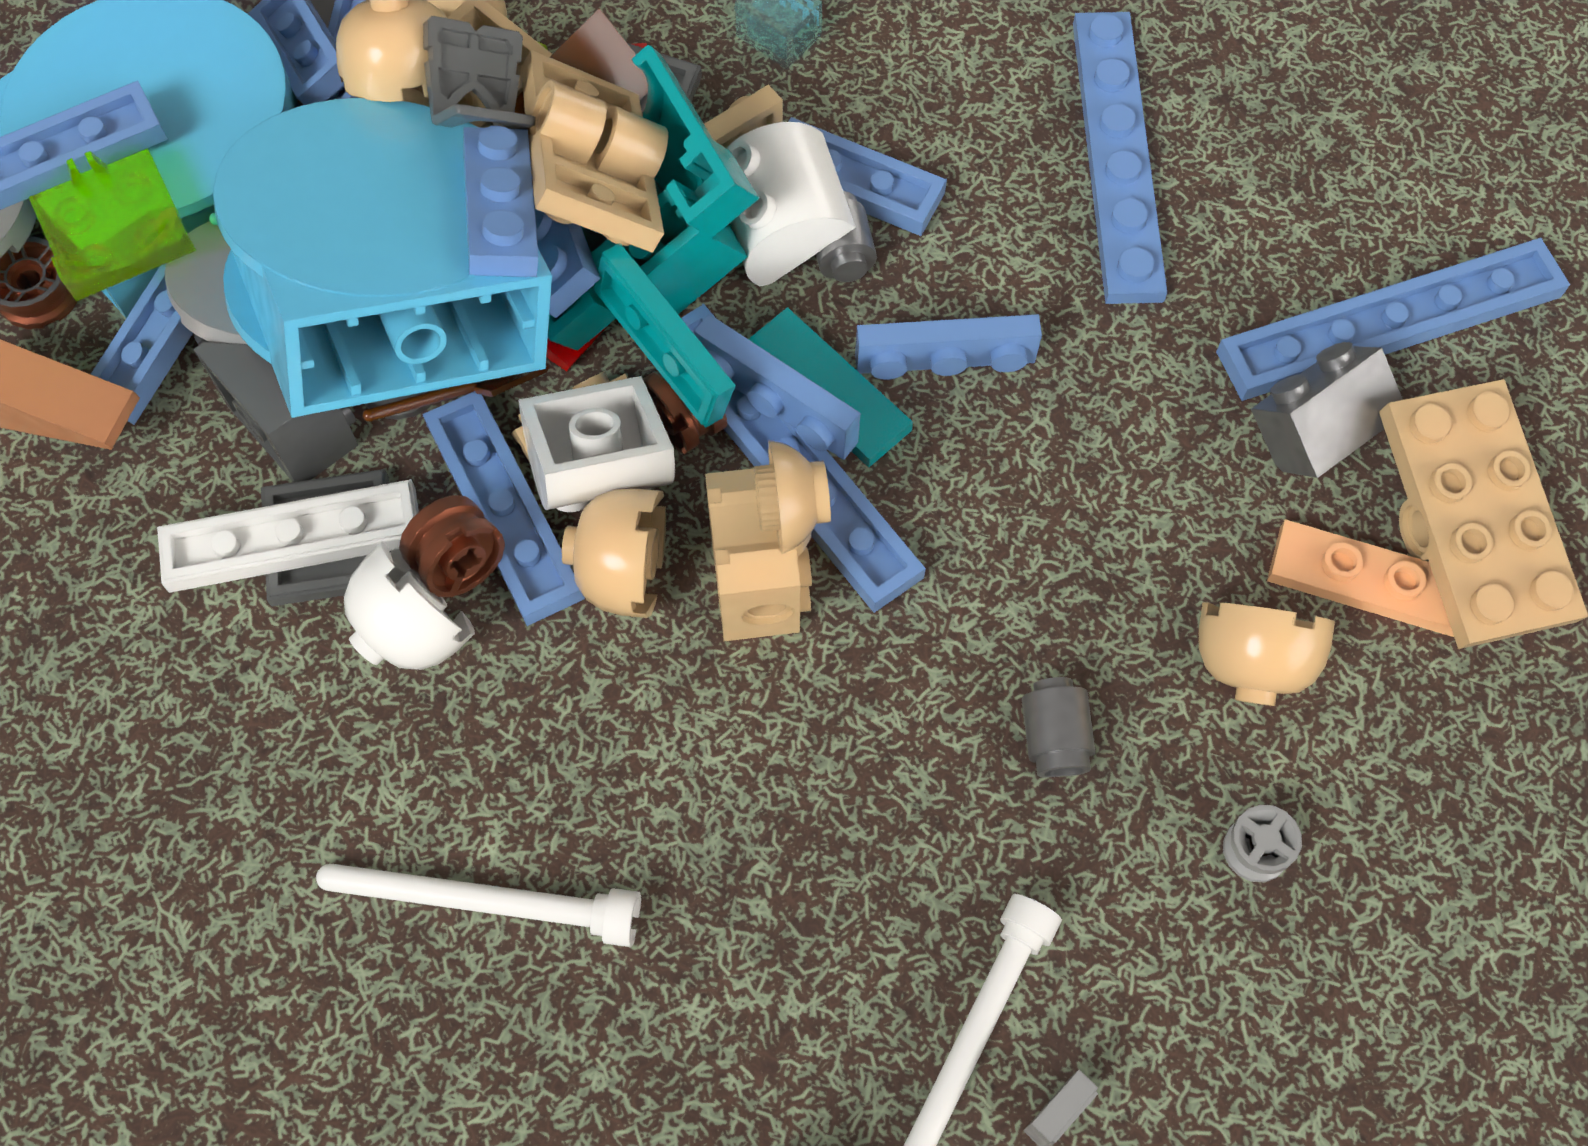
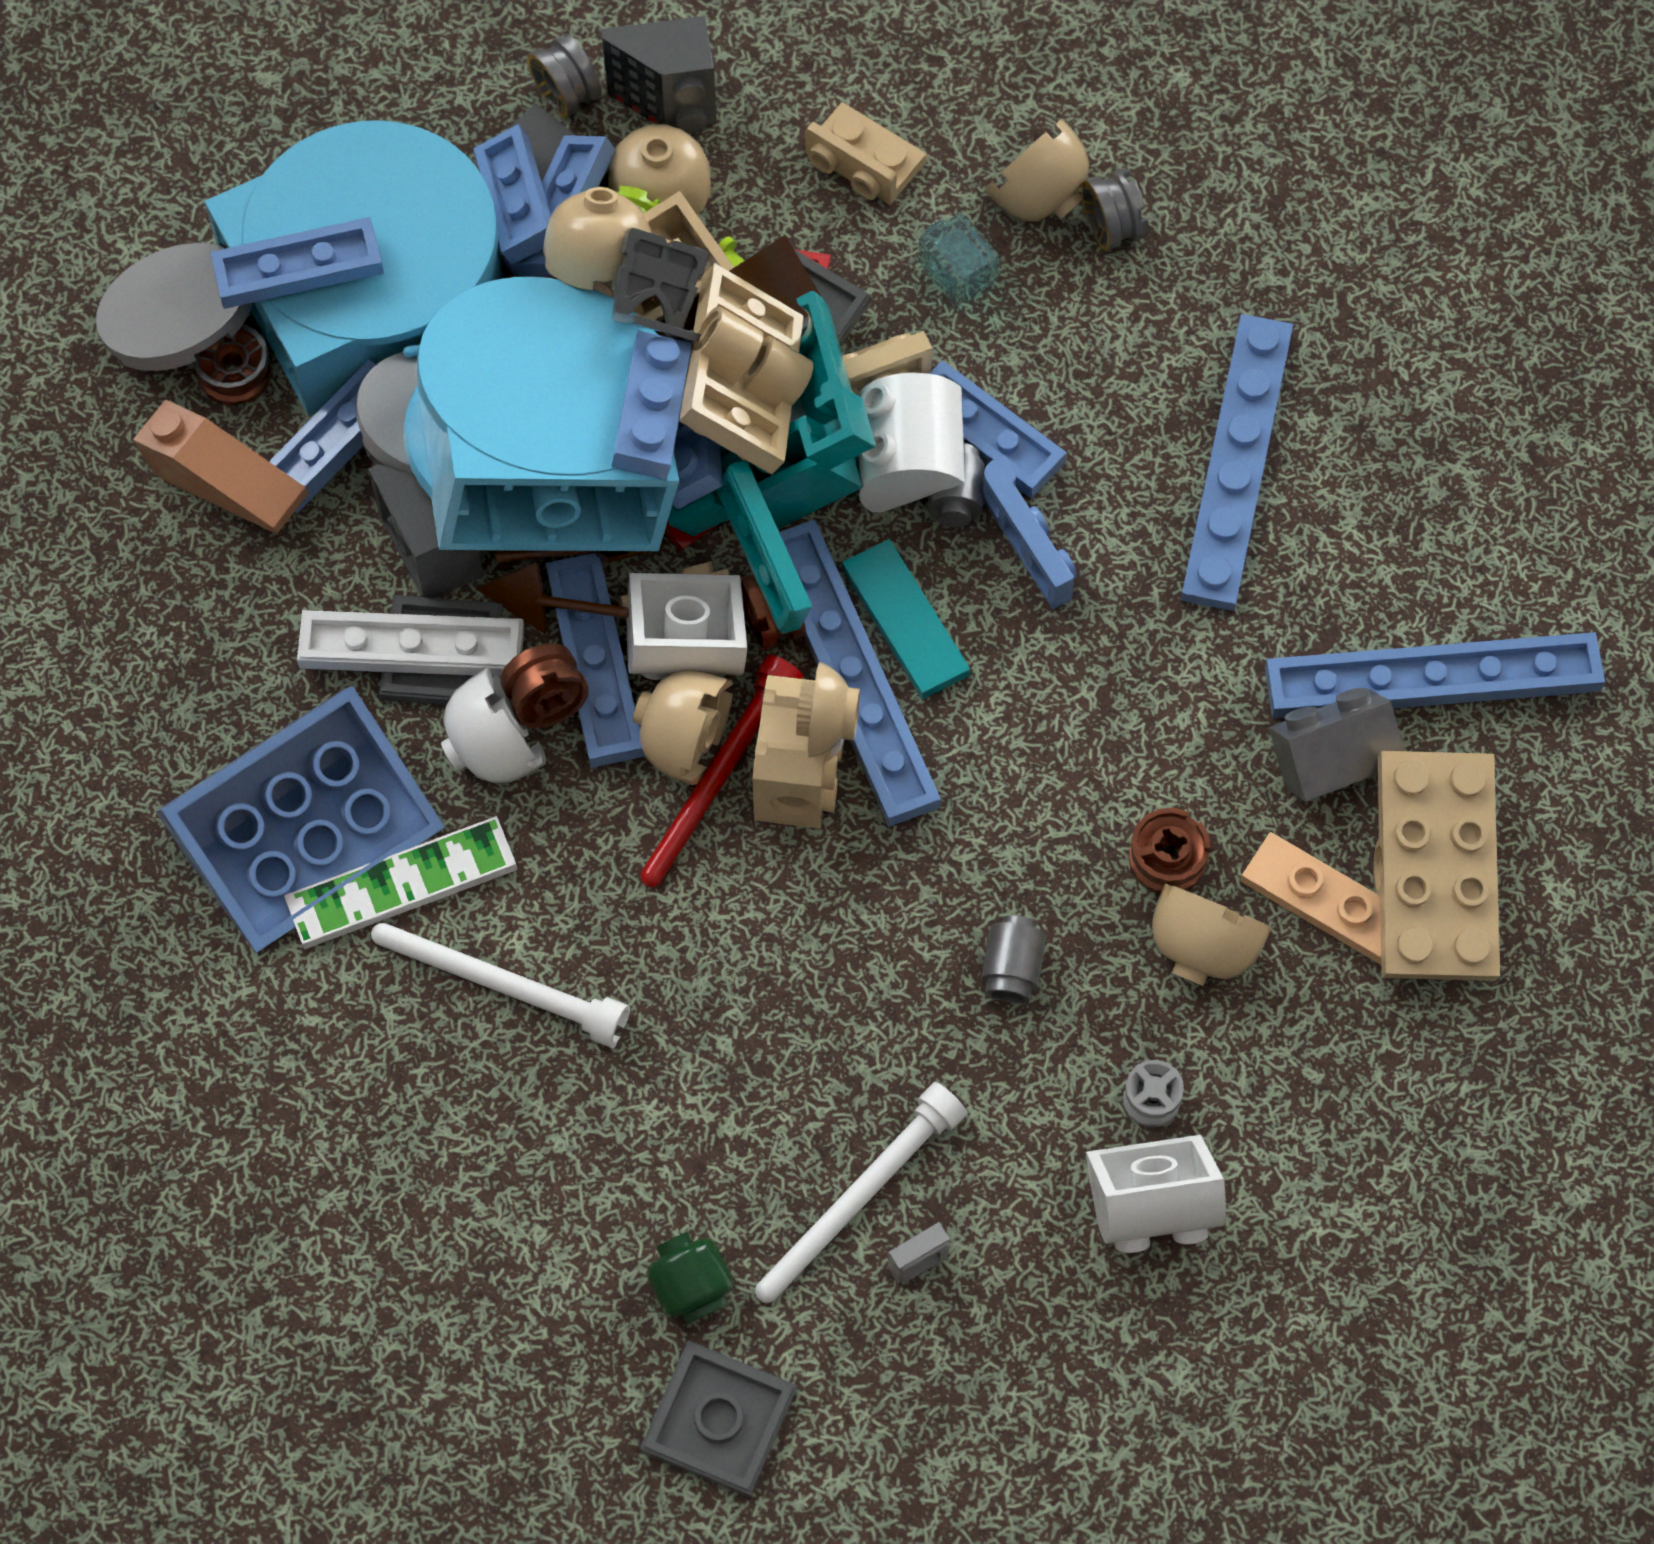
camera: 15 degrees right, 0 degrees up
(110, 223) = (323, 341): clear neon green piece -> none
(201, 767) = (299, 813): none -> medium blue slope
(335, 812) = (402, 882): none -> tile
(407, 456) = (523, 596): none -> reddish brown piece
(668, 600) = (715, 775): none -> red piece
(782, 391) = (854, 614): medium blue plate -> none
(928, 264) = (1028, 533): none -> medium blue plate
(947, 345) = (1019, 608): medium blue plate -> none
(1186, 589) = (1157, 868): none -> copper wheel
(1310, 960) = (1156, 1192): none -> white brick

